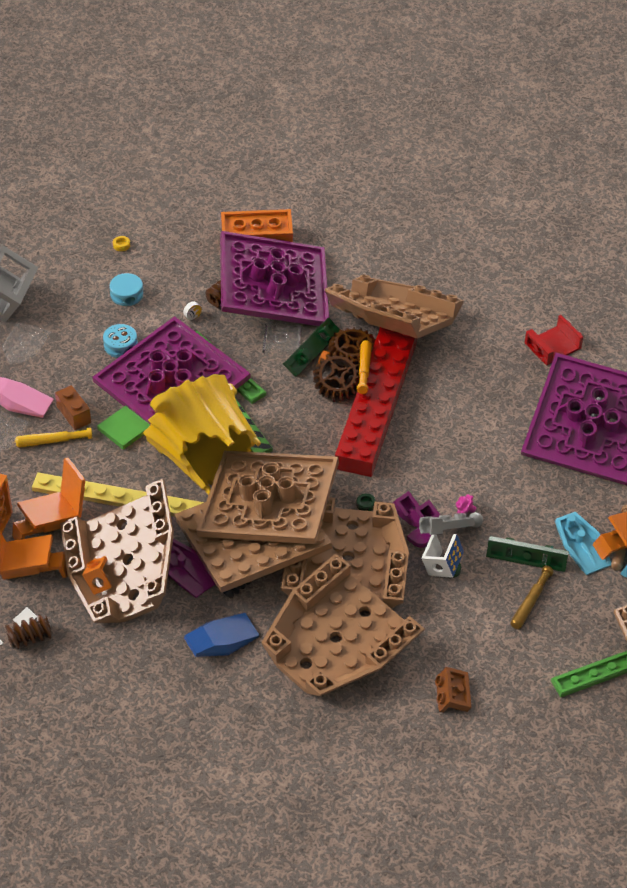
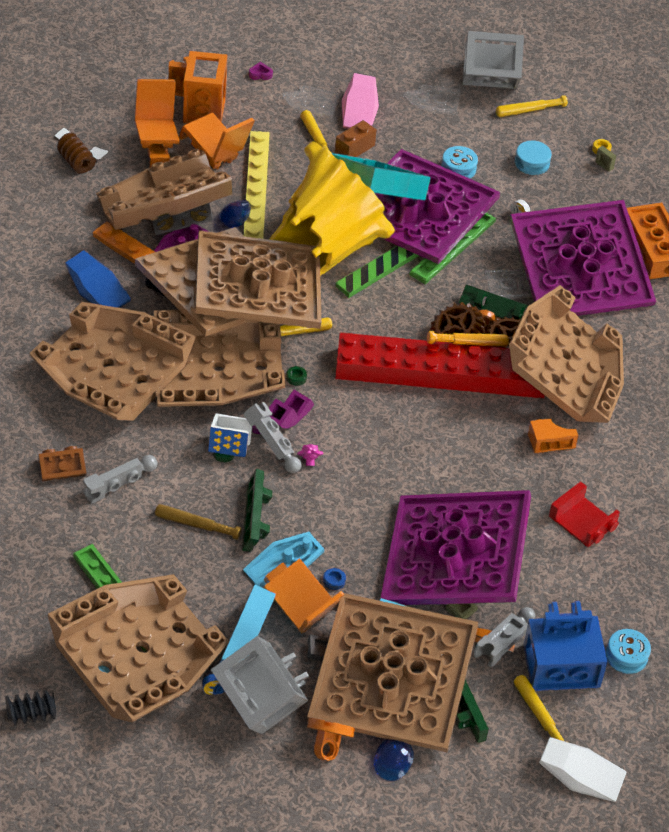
camera: 75 degrees right, 0 degrees up
(55, 294) = (518, 108): none -> yellow piece
(94, 570) = (149, 175): orange bracket -> none
(142, 242) = (605, 158): none -> olive tile
(167, 372) = (387, 178): none -> teal tile
(175, 605) = (121, 242): none -> orange plate
(466, 345) = (547, 436): none -> orange arch
(482, 654) = (112, 480): none -> light grey plate
(602, 512) = (334, 579): none -> blue tile

